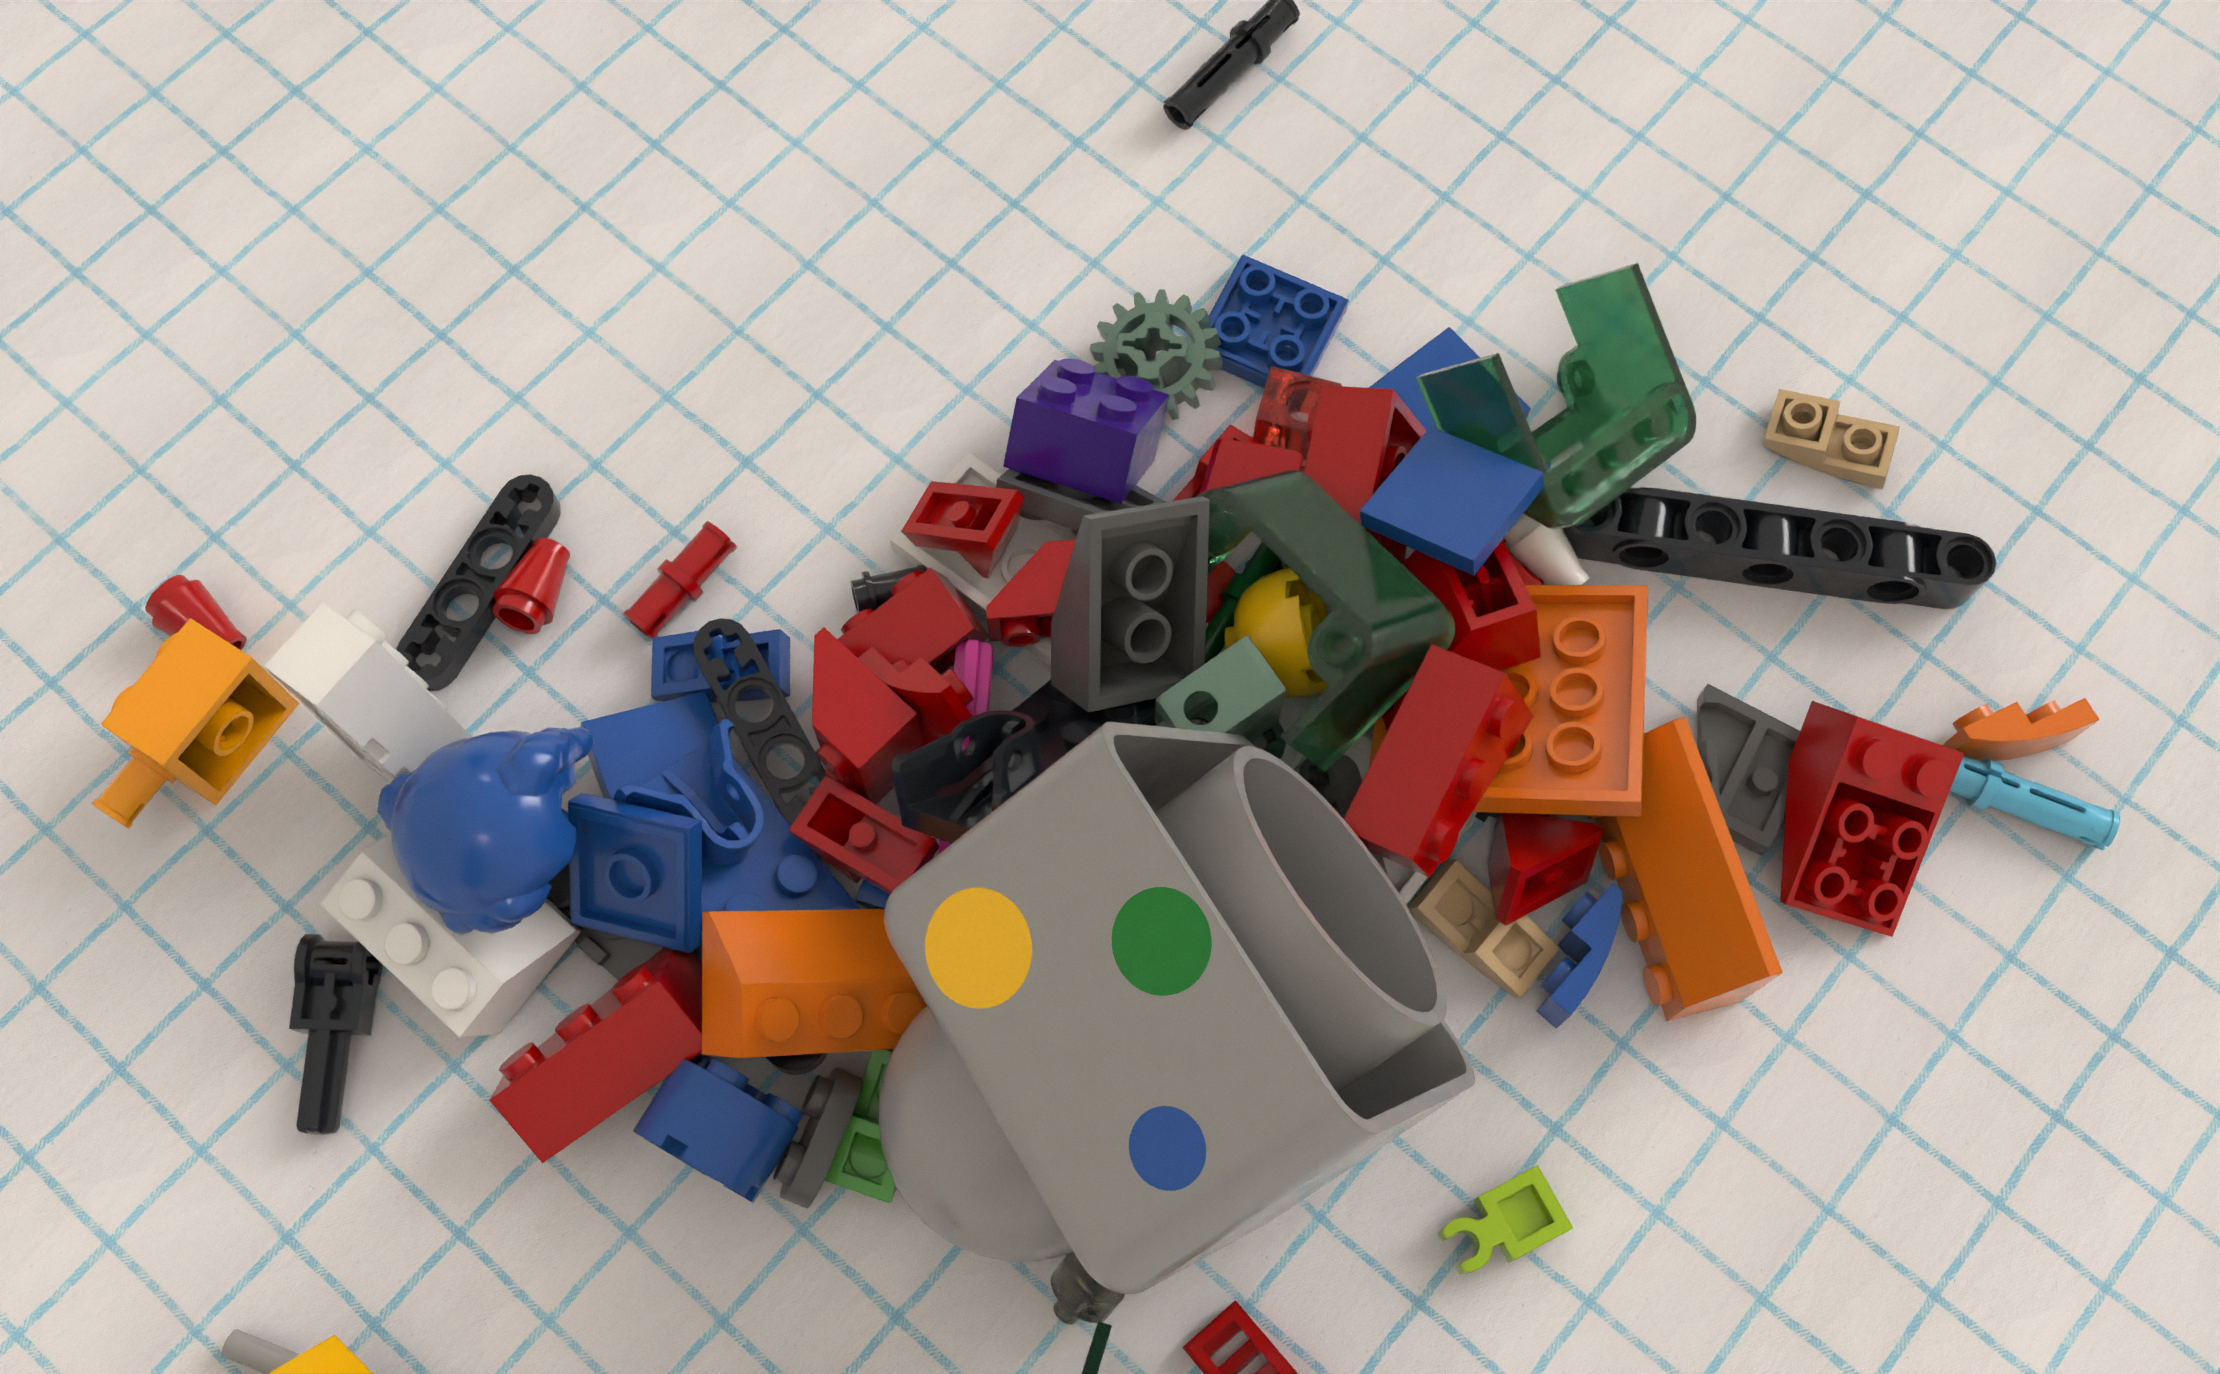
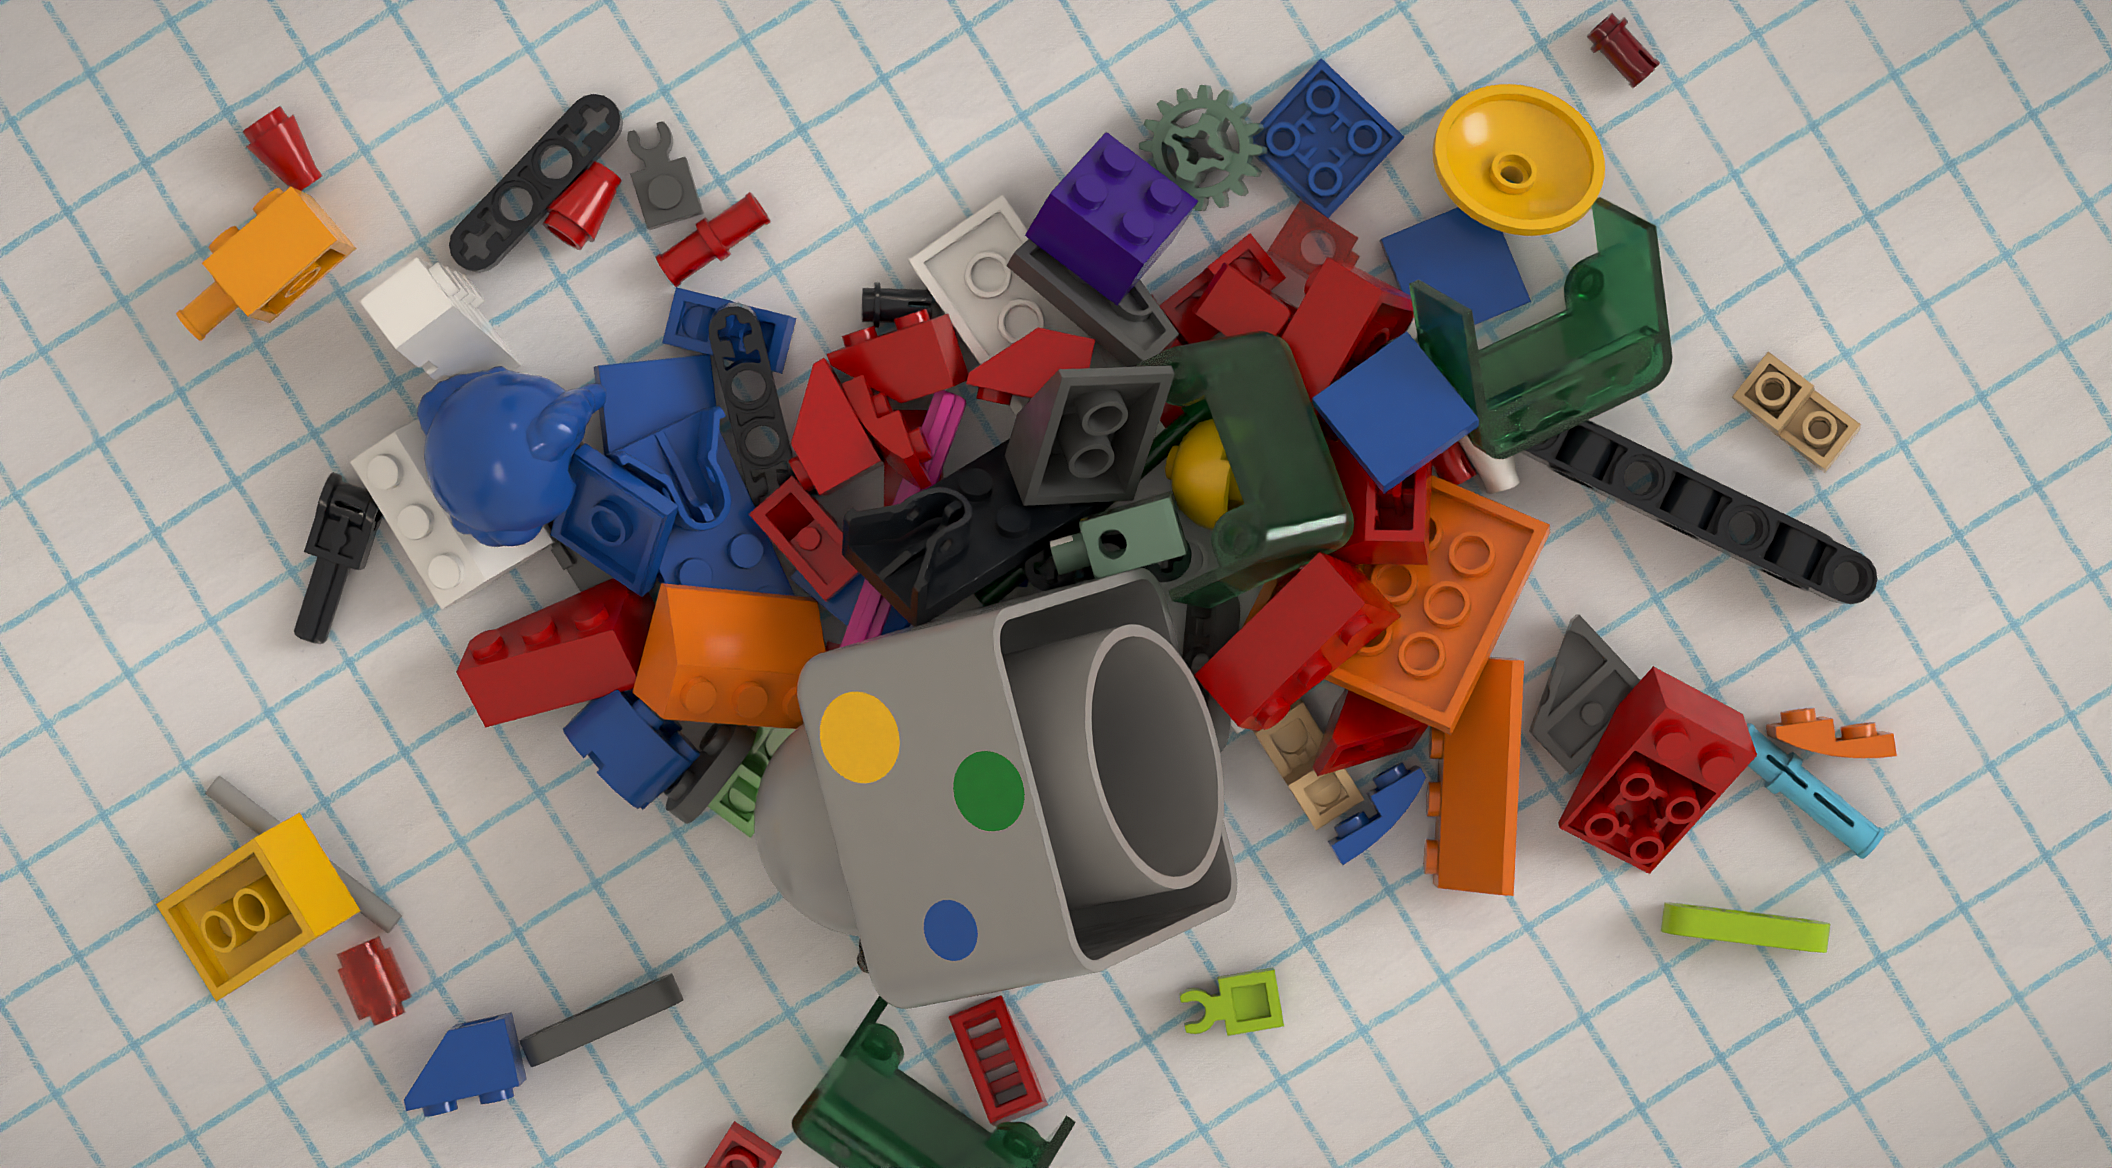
camera: 20 degrees right, 20 degrees up
(614, 546) = (665, 186): none -> dark grey plate
(966, 520) = (973, 276): red slope -> none
(1469, 278) = (1521, 138): none -> yellow dish
(1524, 171) = (1622, 49): none -> dark red pin
(2023, 956) = (1745, 927): none -> lime beam

